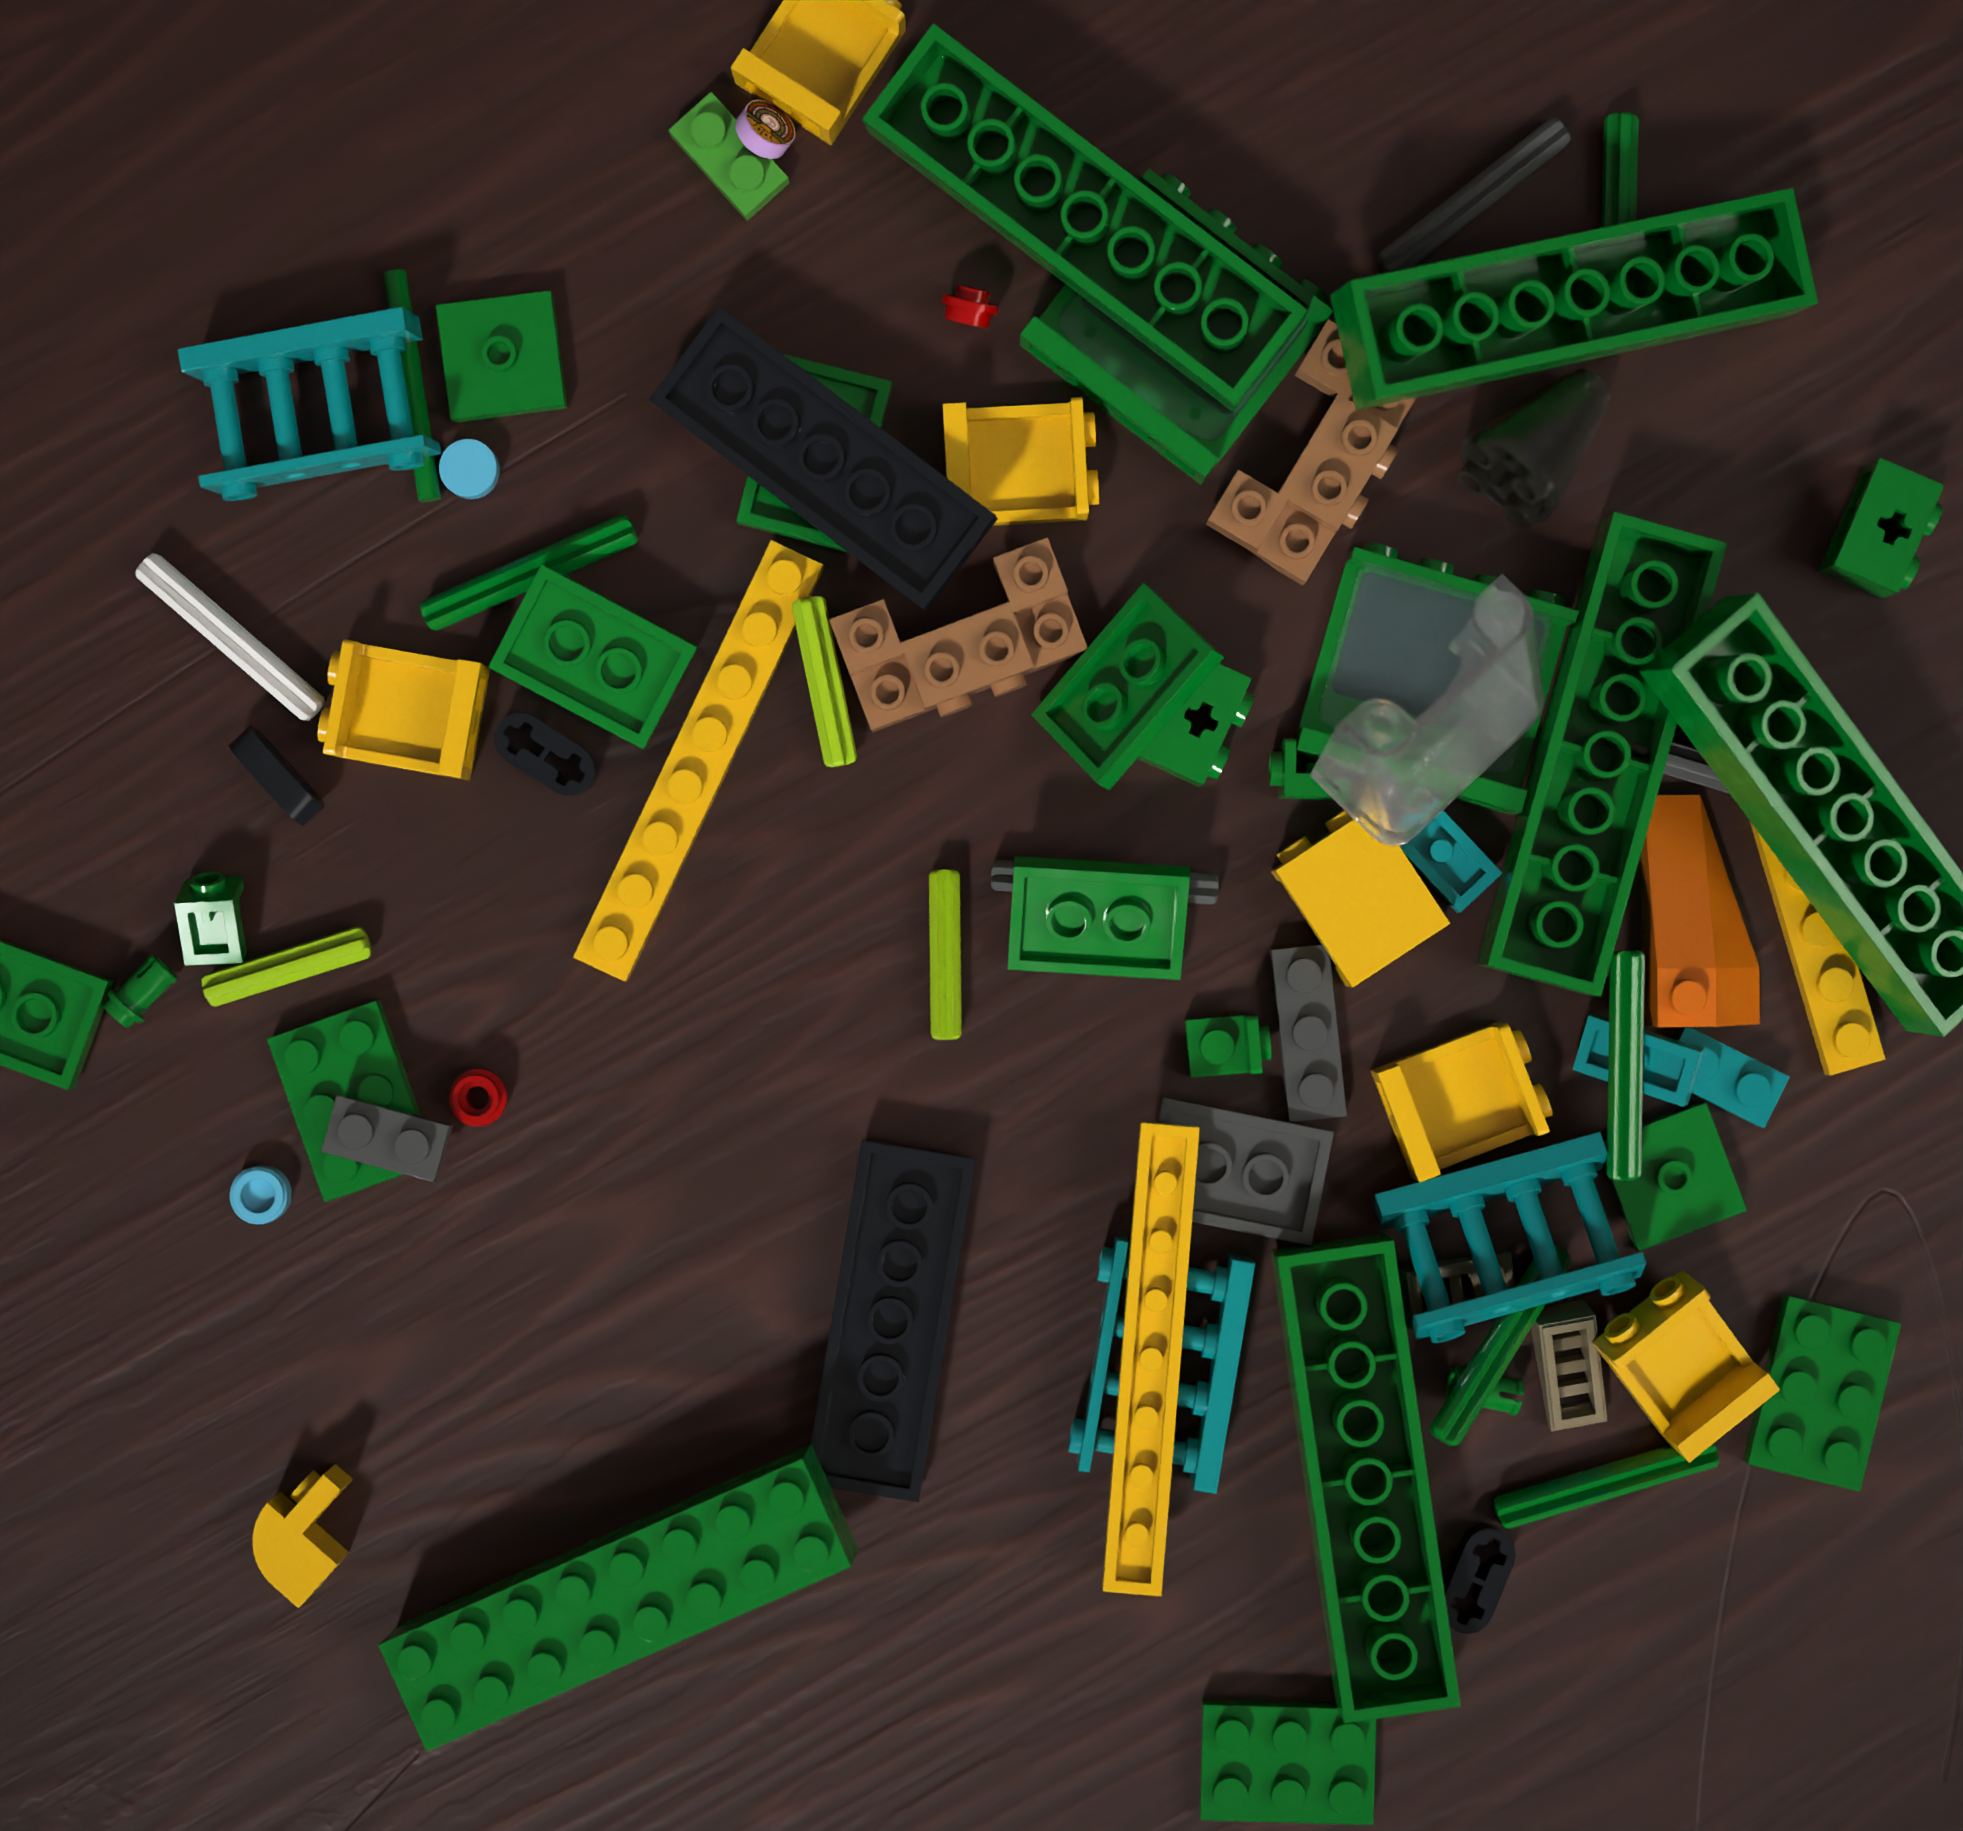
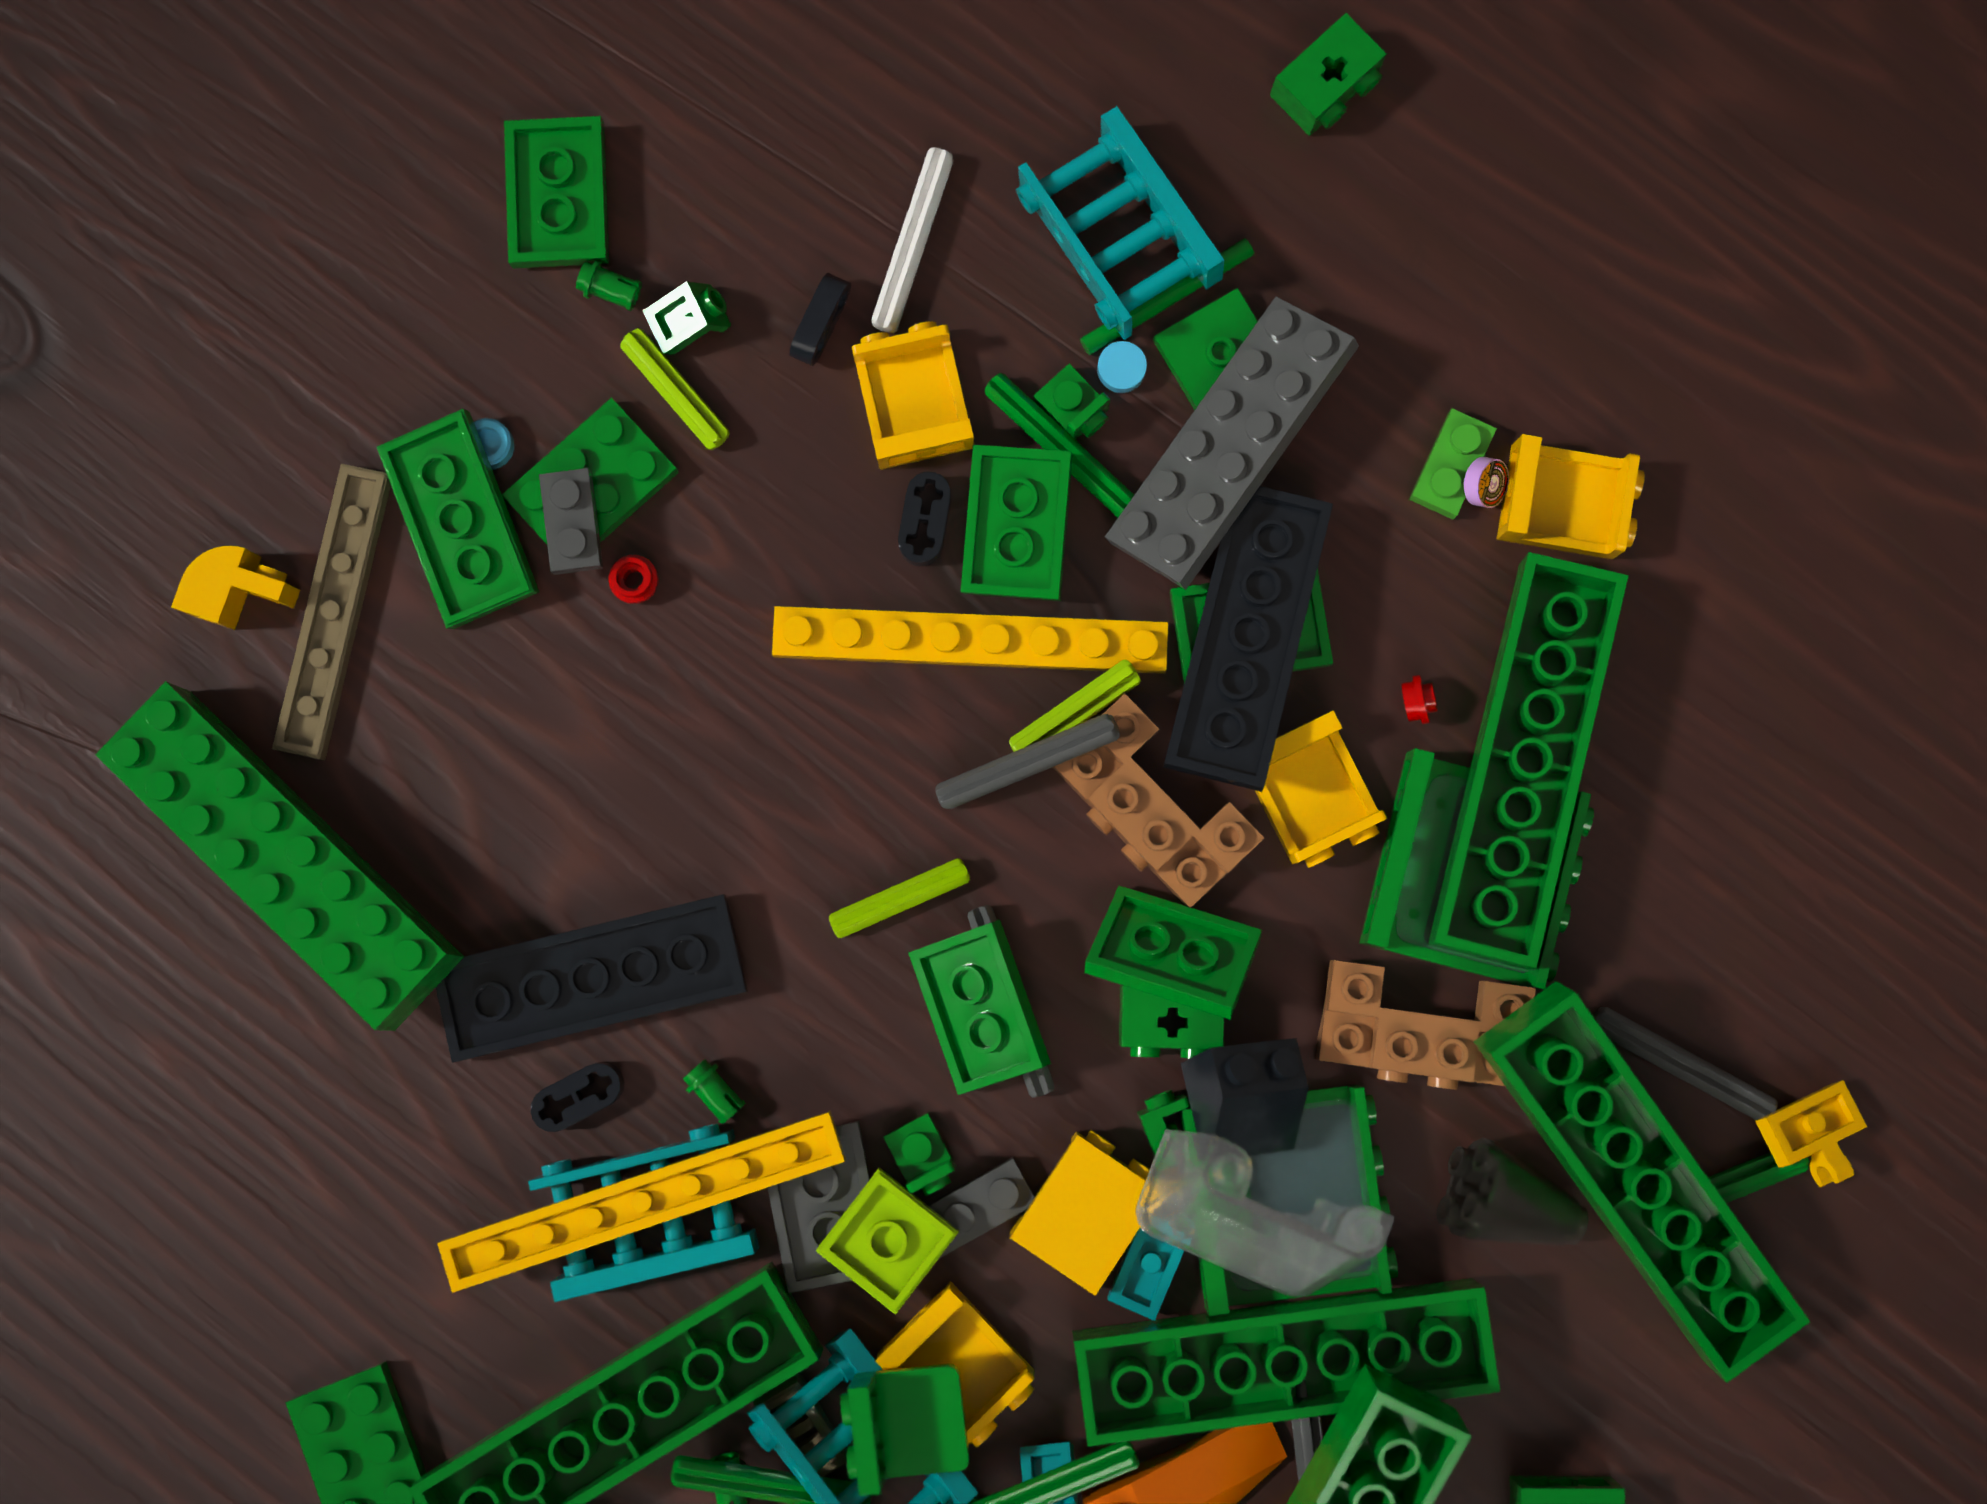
camera: 65 degrees right, 5 degrees down
(219, 75) = (1339, 51): none -> green brick
(330, 1260) = (457, 519): none -> green tile
(374, 1437) = (332, 612): none -> dark tan tile
(487, 539) = (1073, 403): none -> green bracket
(604, 385) = (1231, 441): none -> dark grey plate
(858, 754) = (1027, 761): none -> dark grey axle
(997, 1385) = (583, 1106): none -> black beam
(1065, 1237) = (713, 1091): none -> green pin
(1300, 1118) = (887, 1240): none -> lime tile
(1310, 671) = (1249, 1094): none -> black slope
(1497, 1177) = (904, 1424): none -> green bracket
(1598, 92) = (1813, 1129): none -> yellow plate

